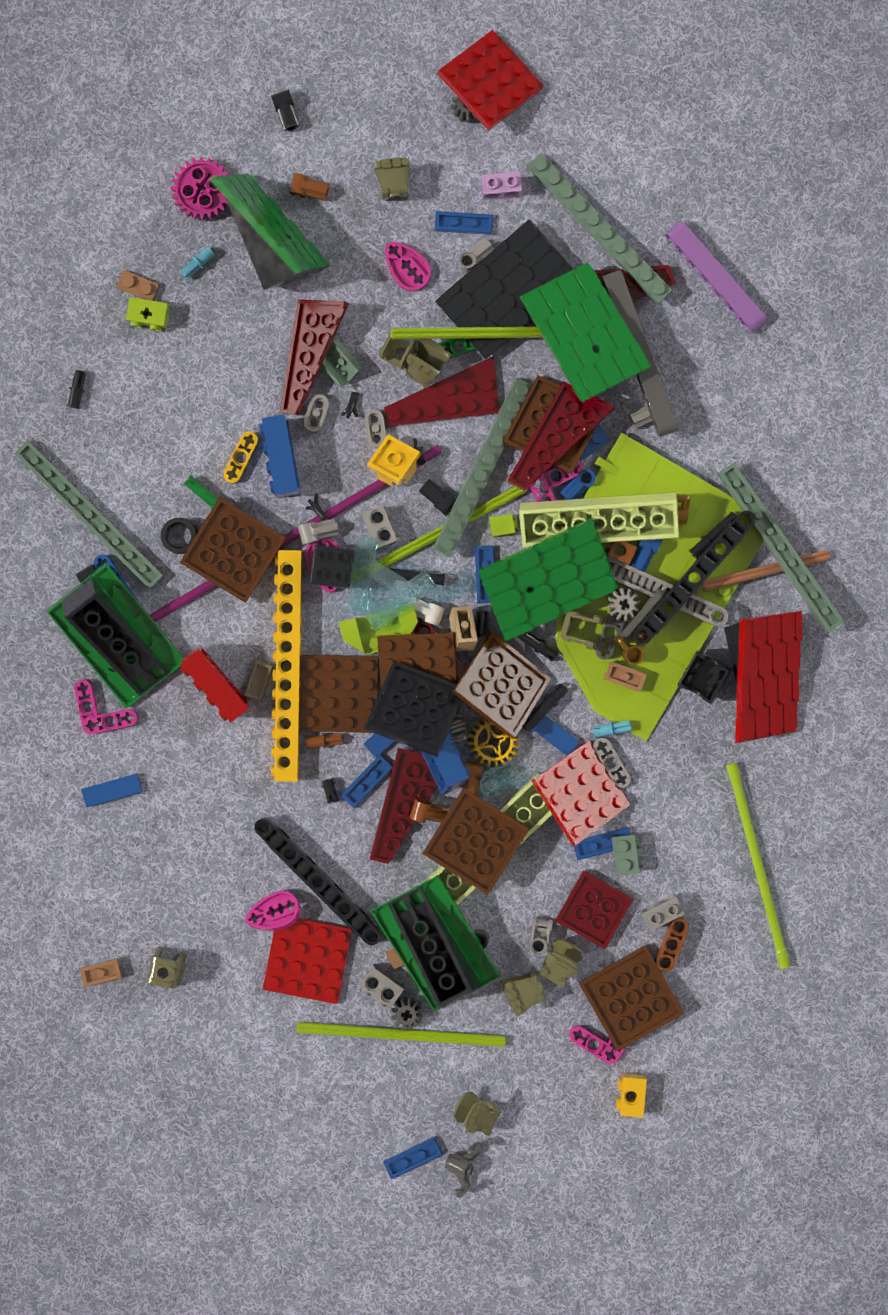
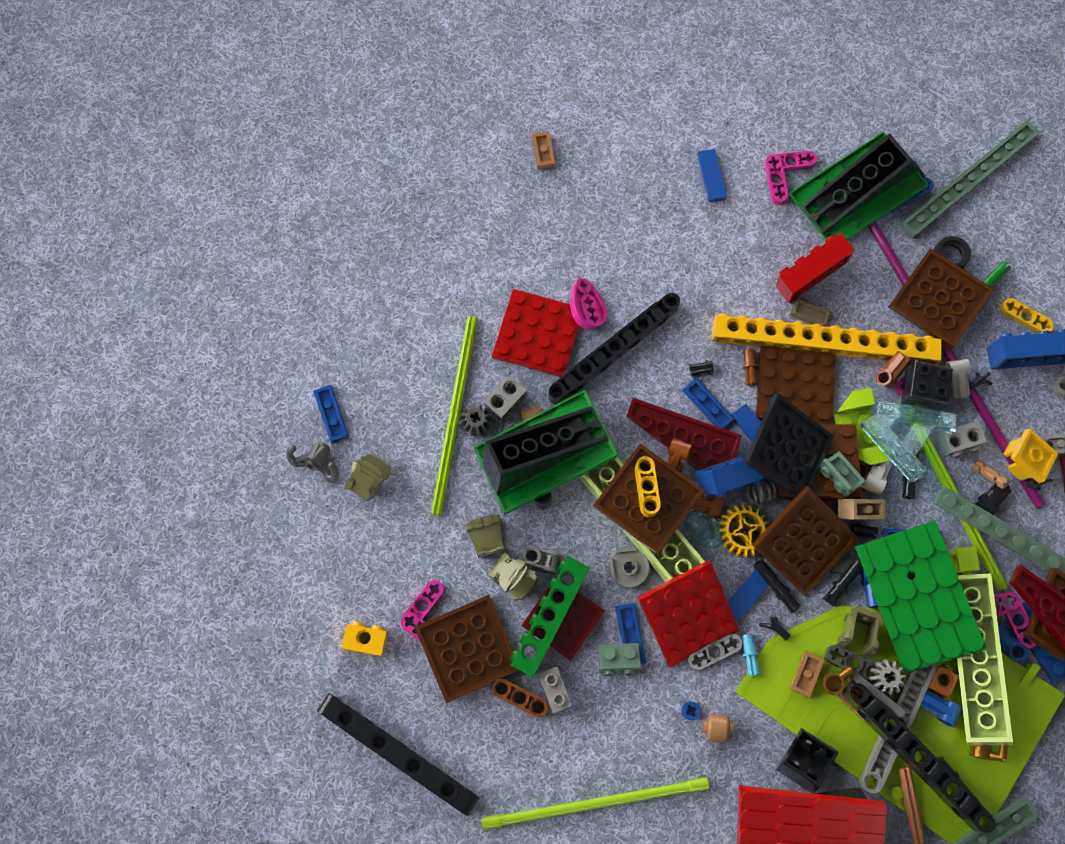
camera: 90 degrees right, 15 degrees down
(174, 968) = (541, 202): olive piece -> none
(319, 600) = (894, 368): none -> dark orange piece
(413, 501) = (991, 474): none -> medium nougat axle
(434, 654) = (842, 474): none -> sand green bracket
(477, 846) = (647, 477): none -> yellow beam
(548, 855) = (636, 559): none -> light grey plate
(583, 705) = (775, 626): none -> black bar
(638, 949) = (530, 665): none -> green brick
(673, 783) = (689, 717): none -> blue bush
(681, 757) = (718, 728): none -> medium nougat head
(732, 1052) = (398, 754): none -> black beam

